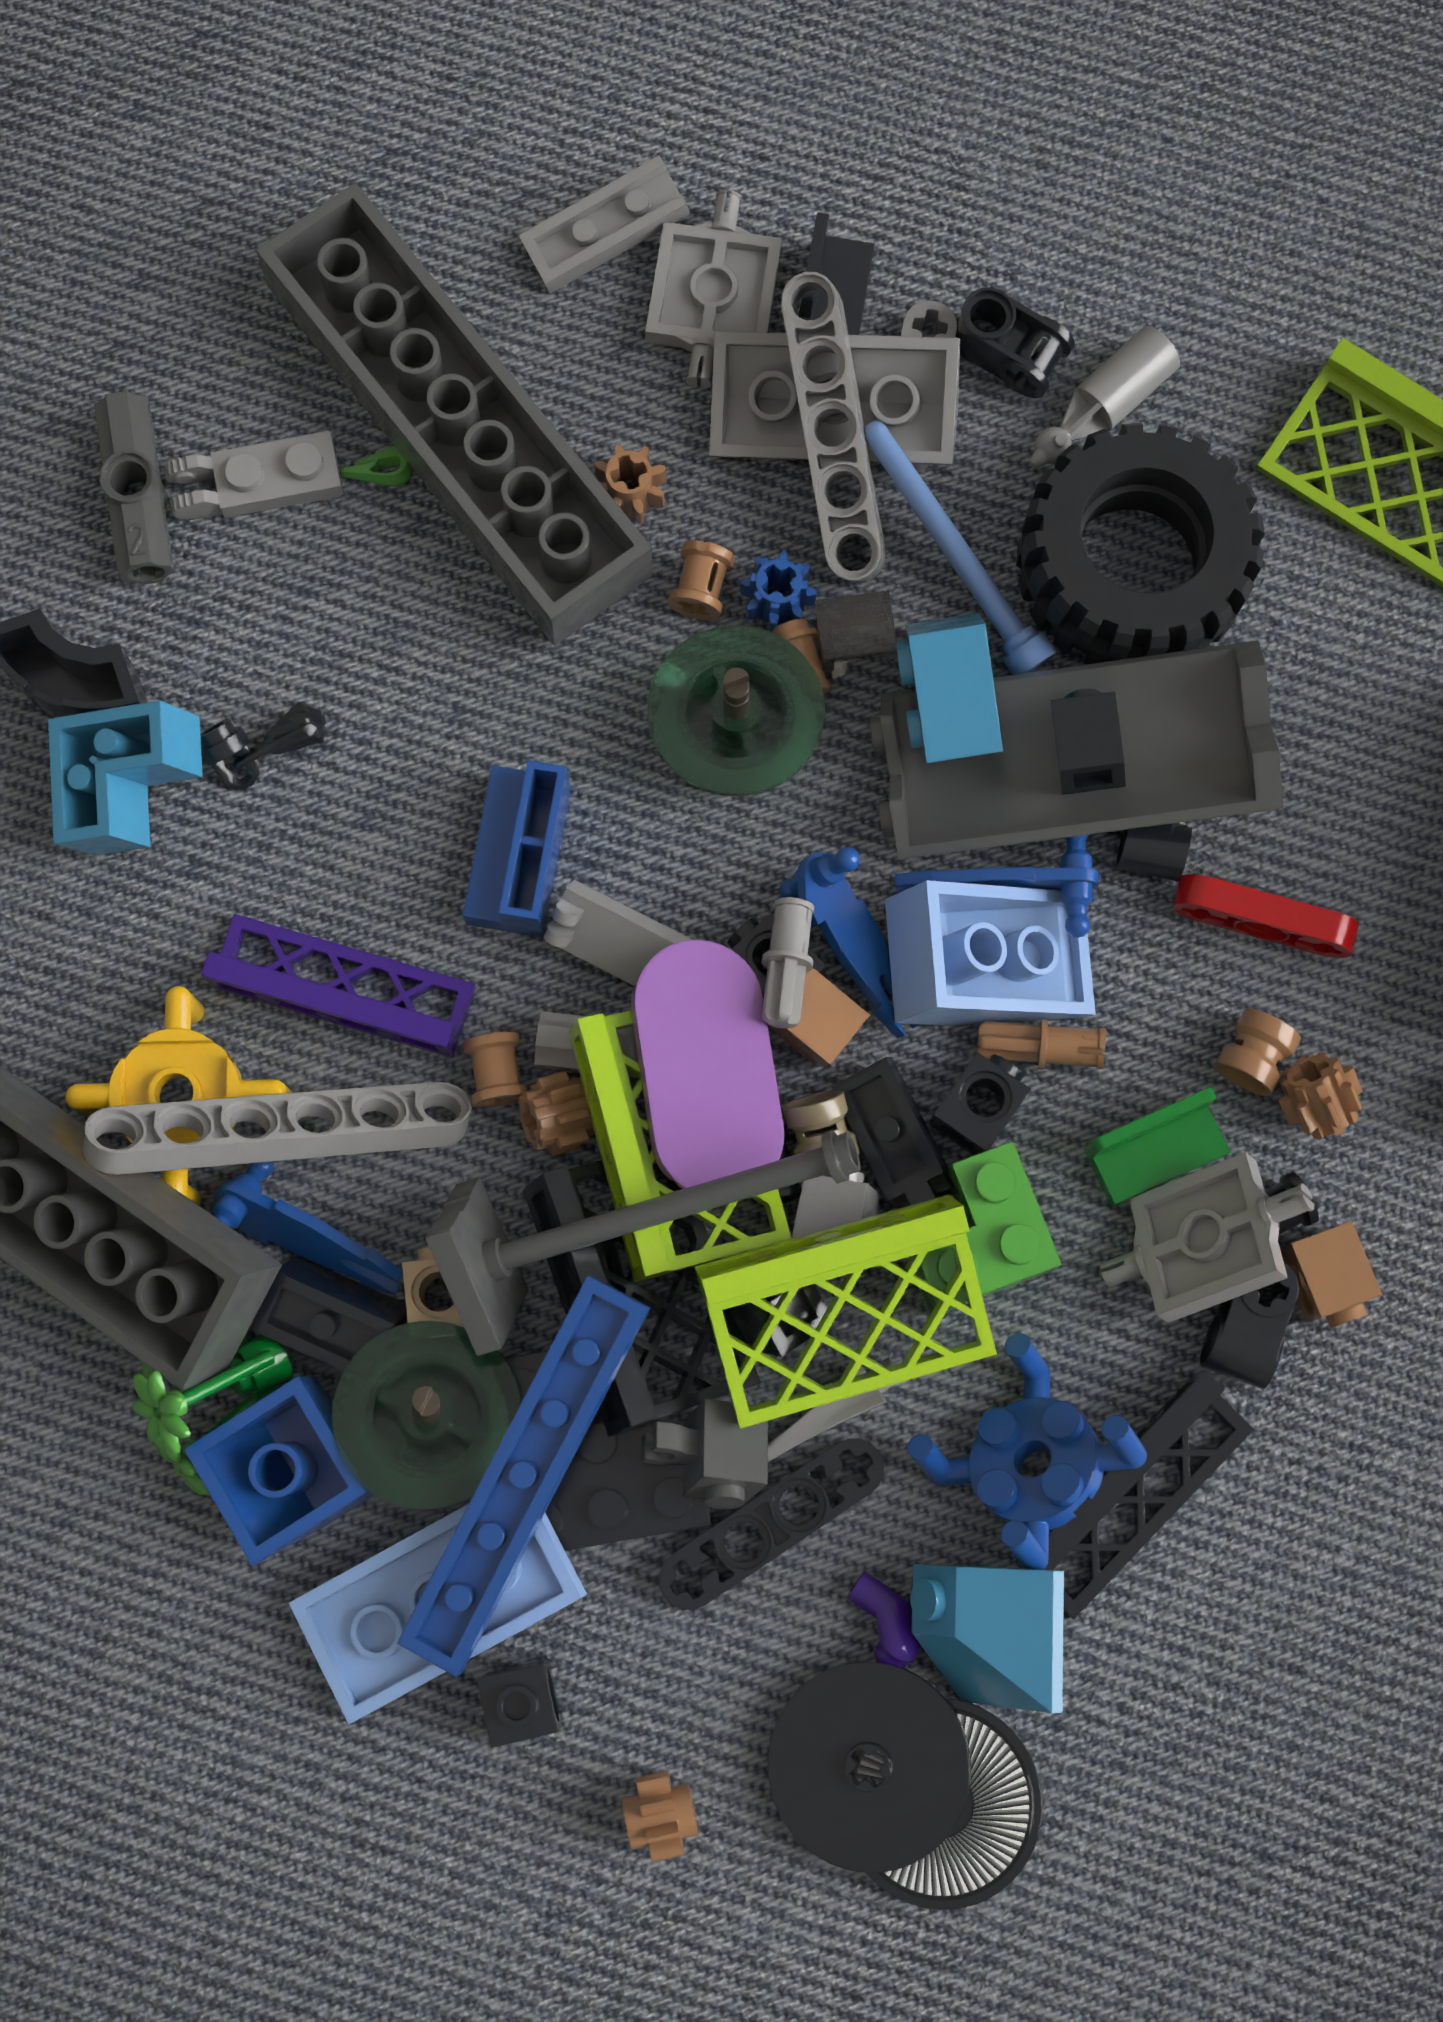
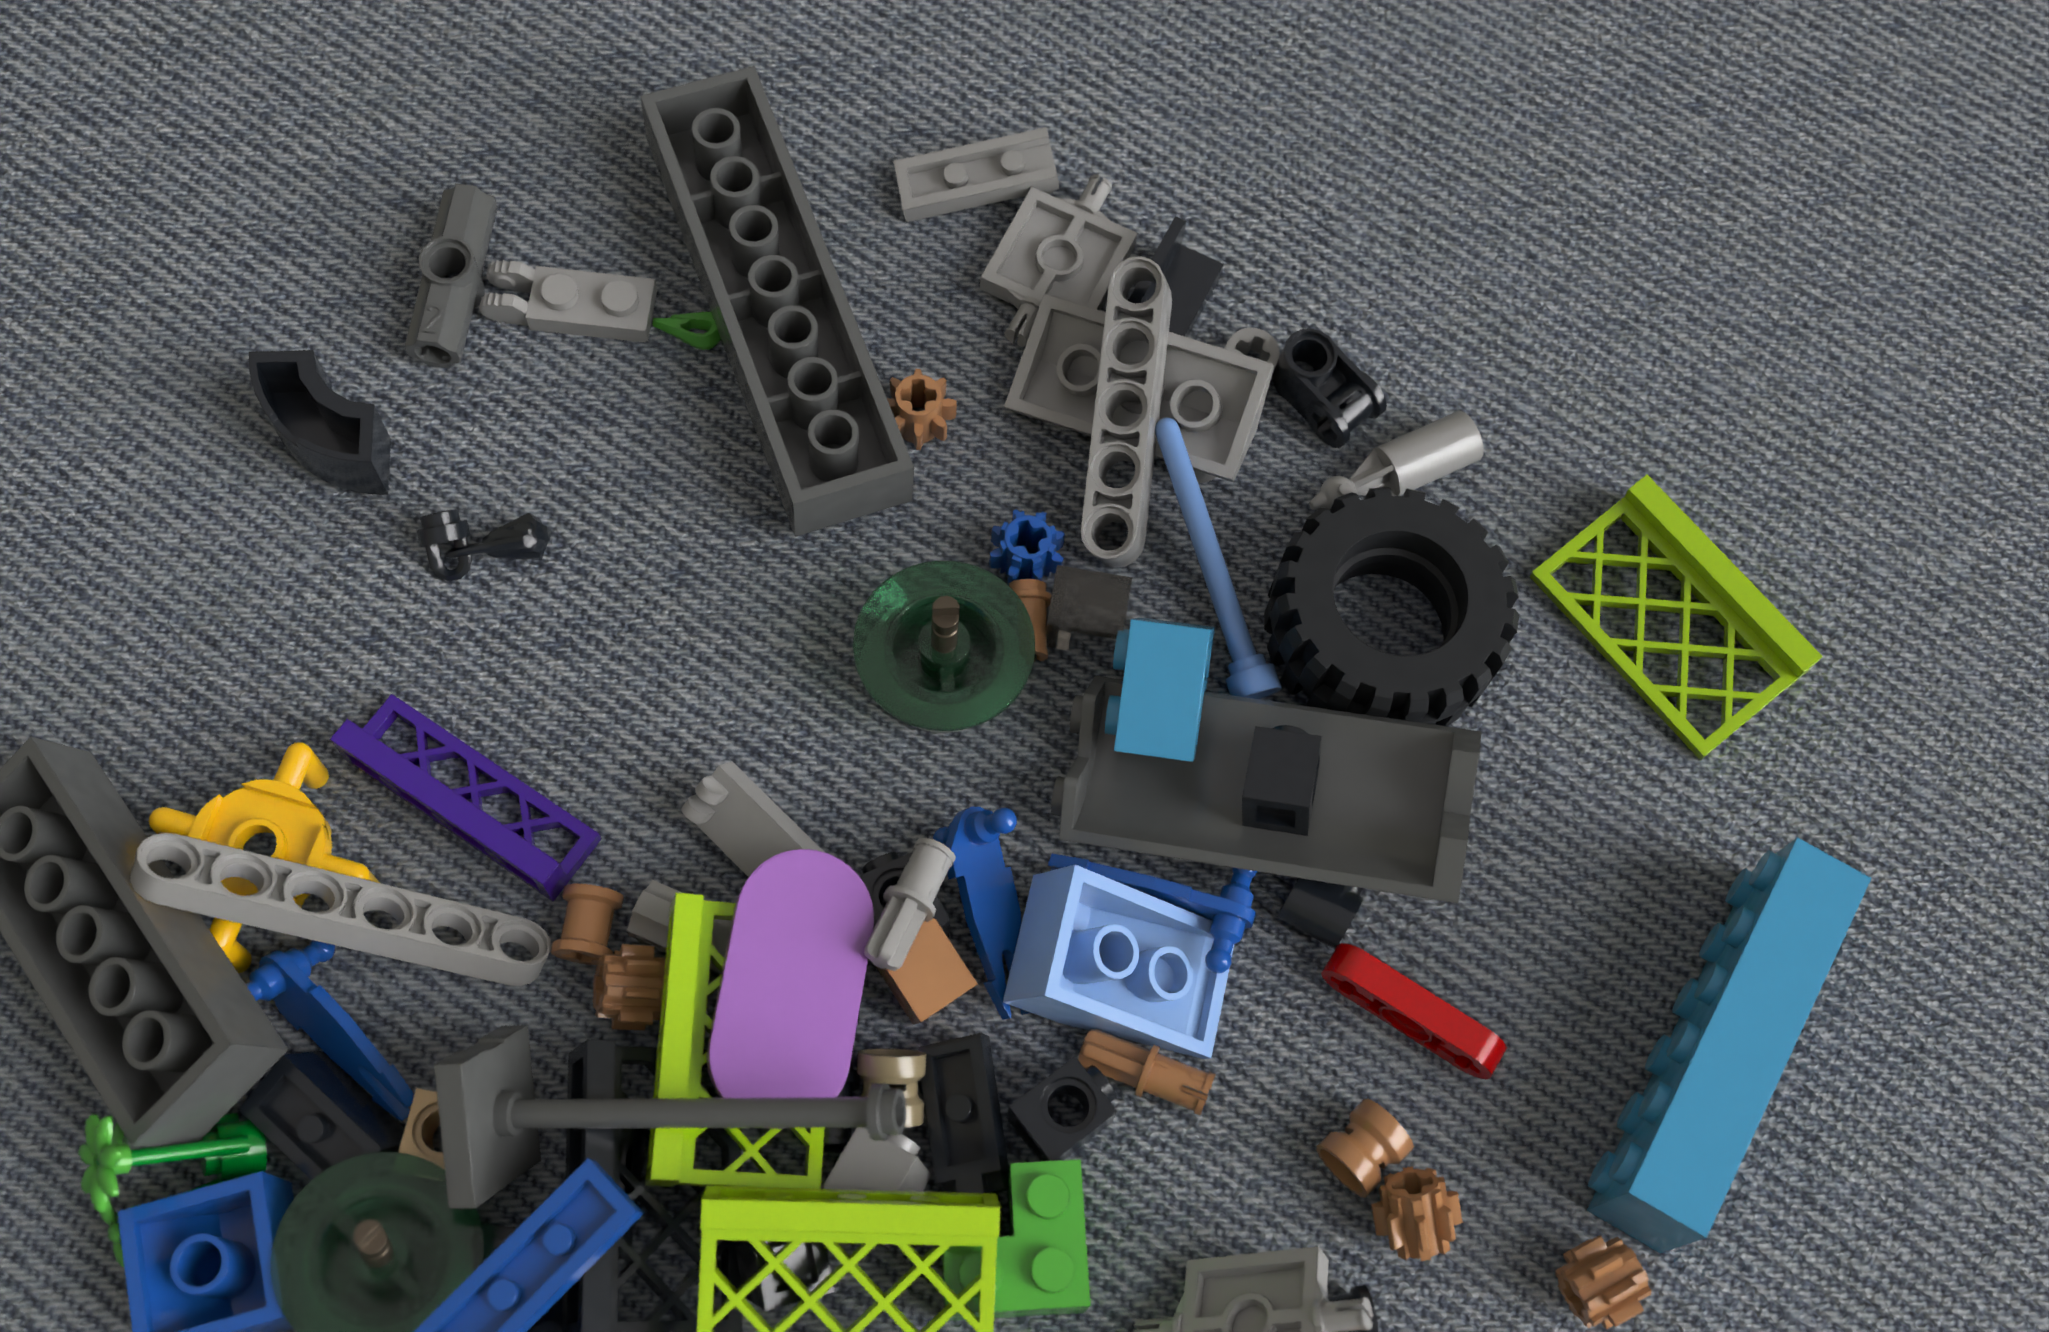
camera: 10 degrees right, 10 degrees down
(105, 767) = (319, 516): dark azure brick -> none
(518, 848) = (689, 715): blue piece -> none
(701, 580) = (956, 517): medium nougat bush -> none
(1157, 1148) = (1232, 1215): green panel -> none

